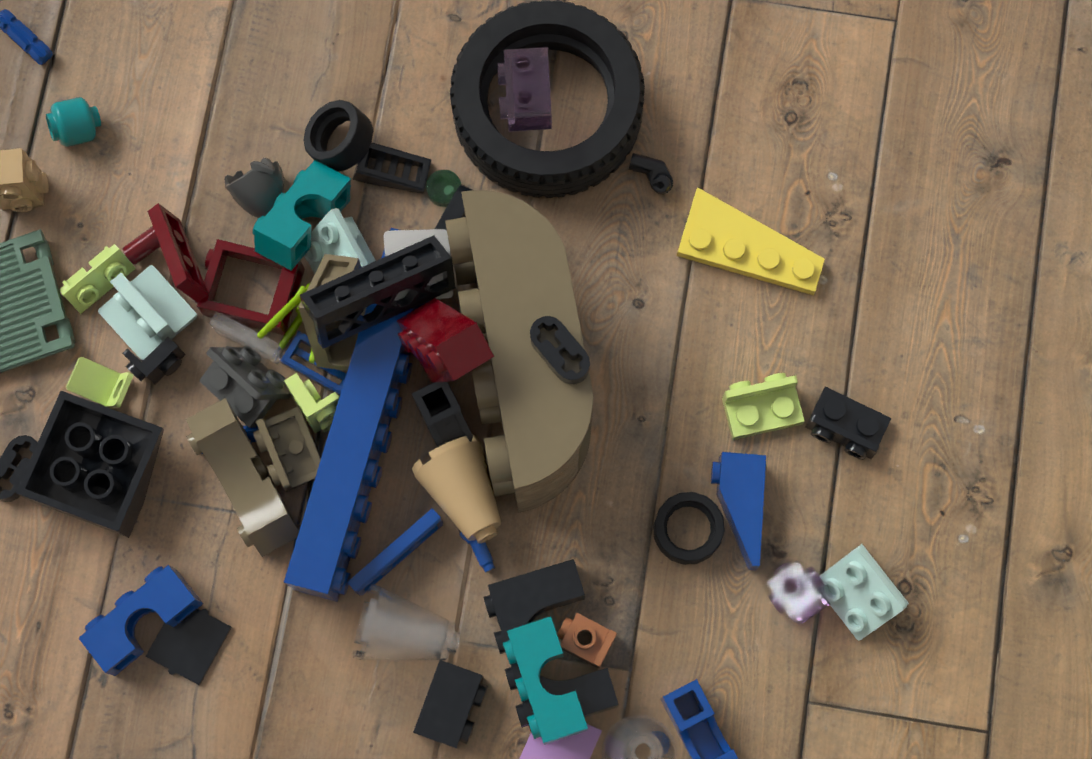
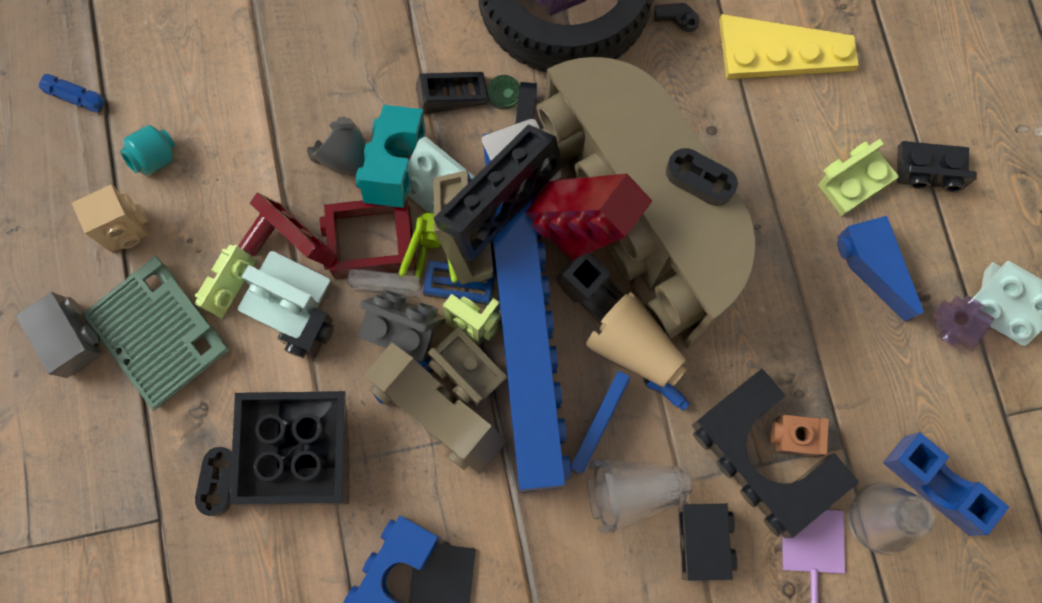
camera: 25 degrees left, 0 degrees up
(99, 383) = (266, 373): yellowish green bracket -> none
(324, 123) = (377, 71): black tyre -> none
(554, 715) = (811, 516): teal arch -> none
(697, 501) = (865, 292): black tyre -> none

